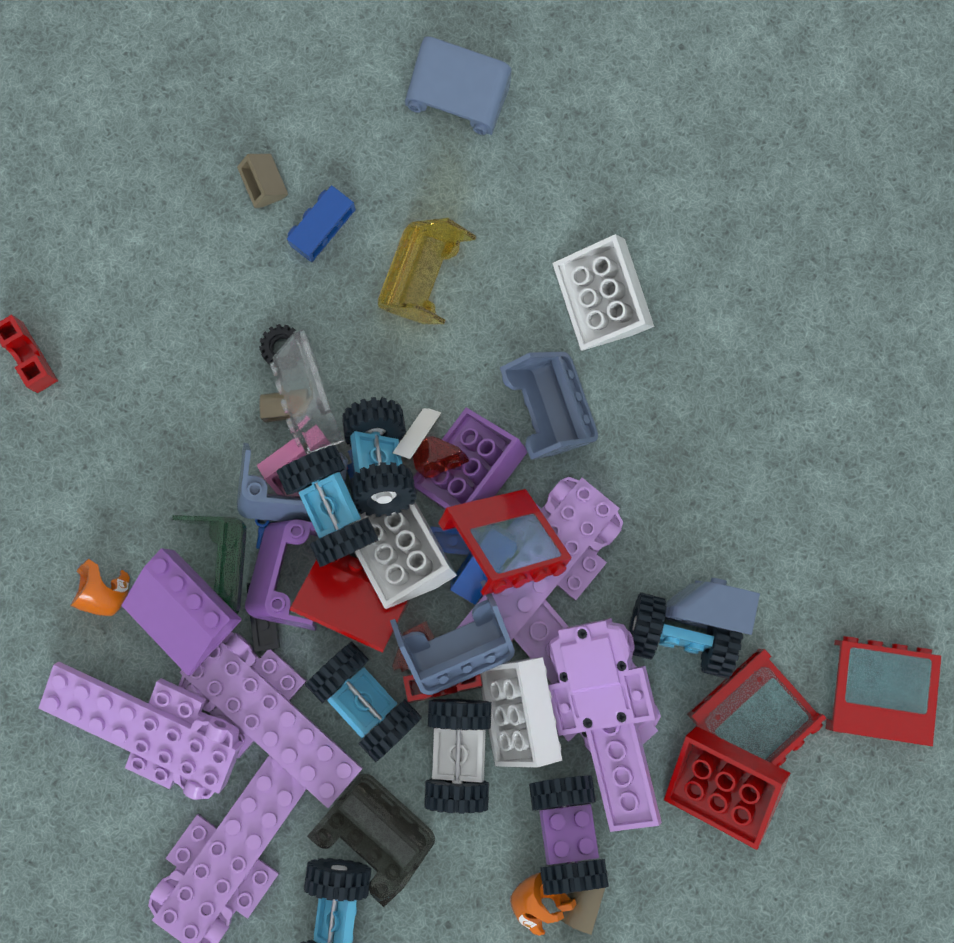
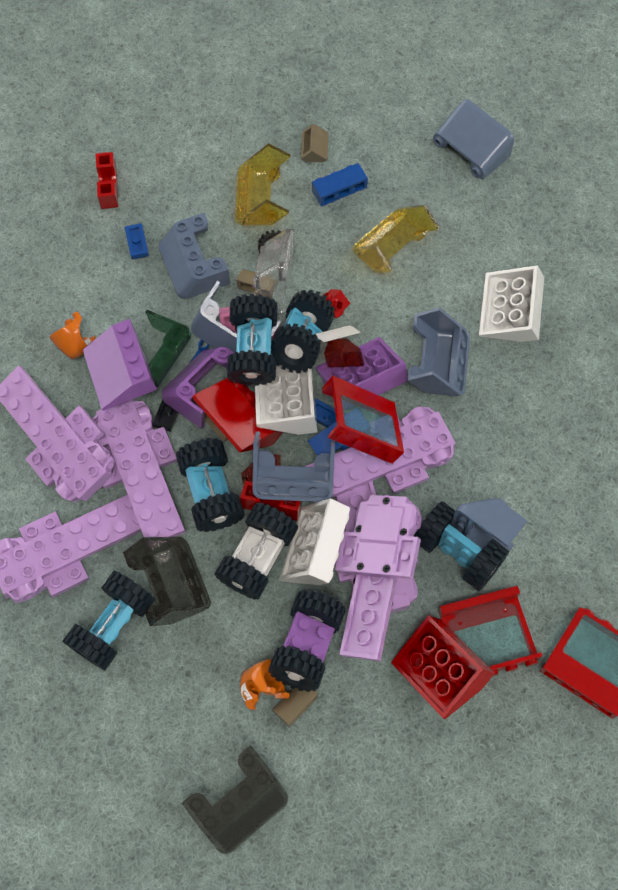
camera: 30 degrees right, 15 degrees down
(107, 418) = (136, 241): none -> blue plate
(182, 420) = (185, 261): none -> sand blue windscreen
(218, 279) = (254, 188): none -> clear yellow windscreen
(394, 388) = (338, 300): none -> red brick

